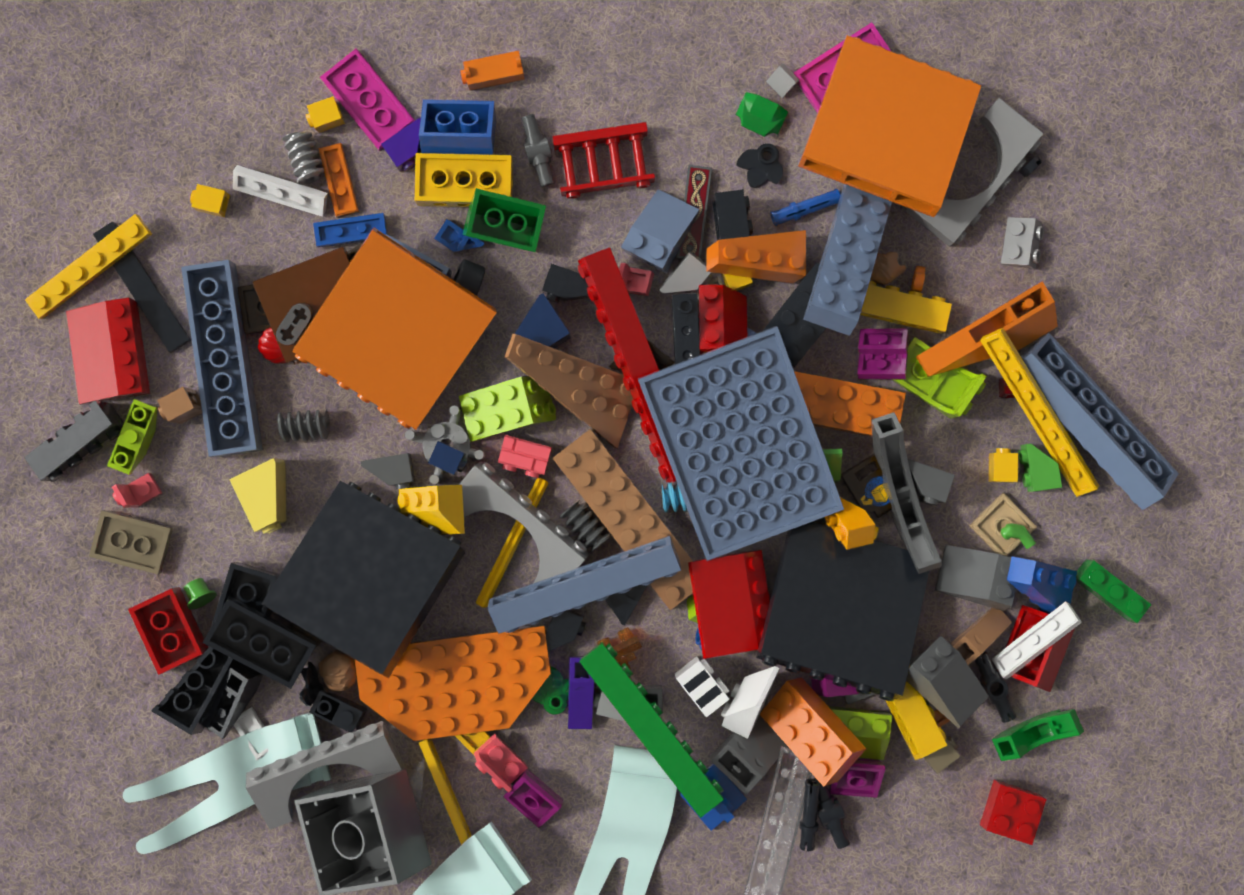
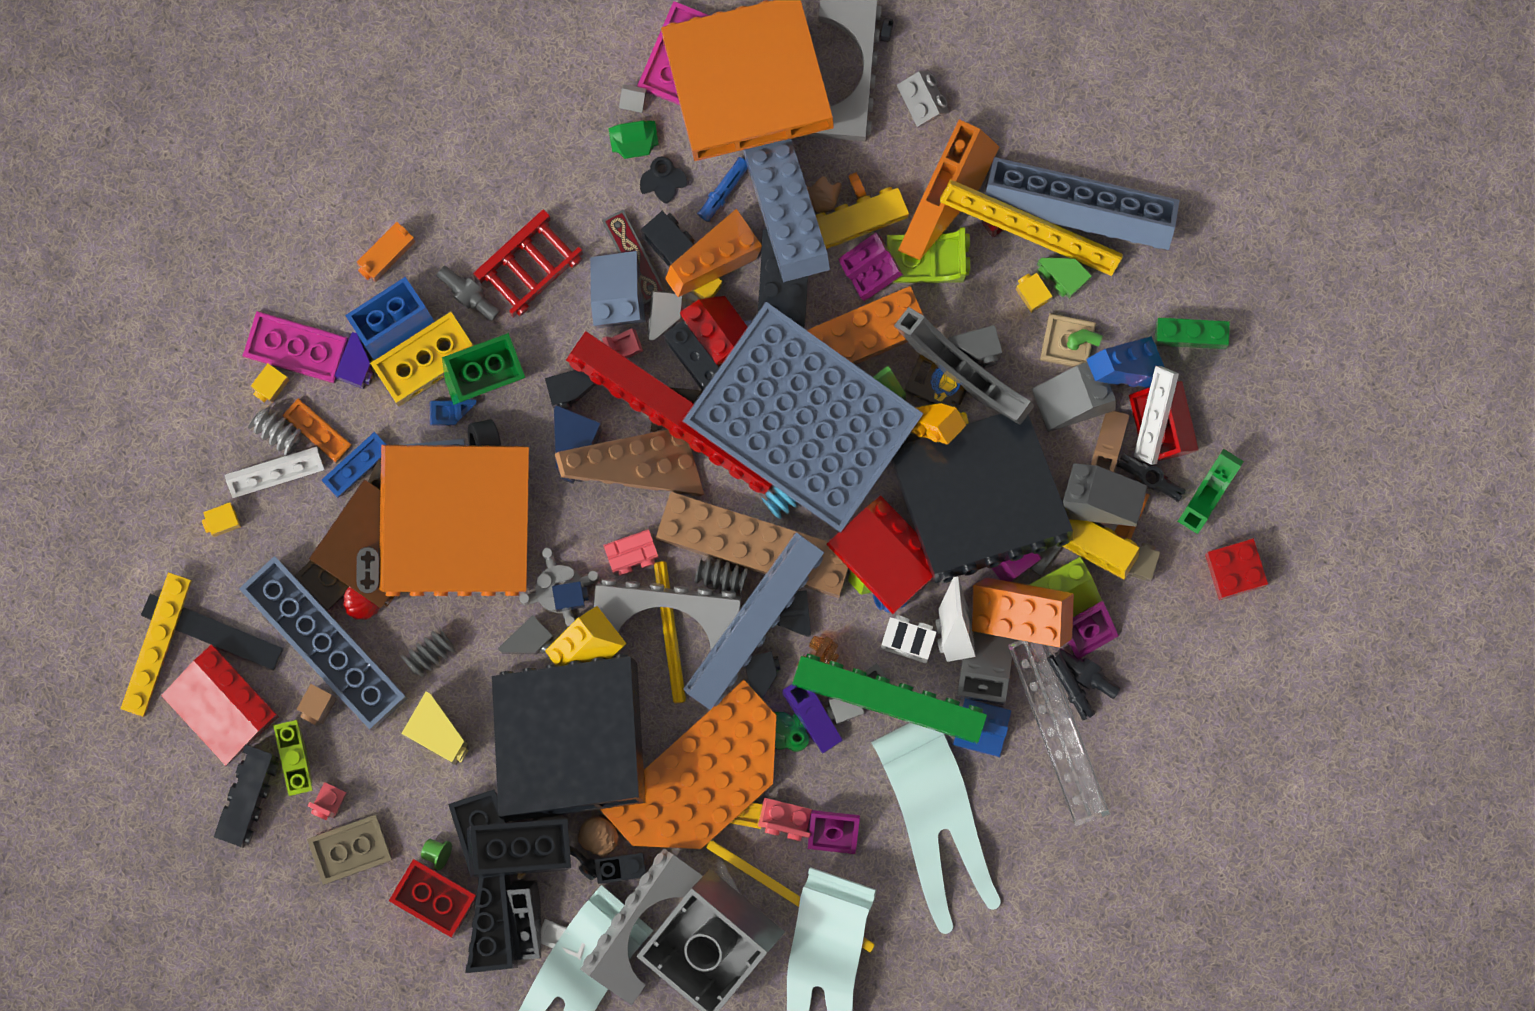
camera: 30 degrees left, 5 degrees down
(506, 407) = (588, 522): lime bracket -> none

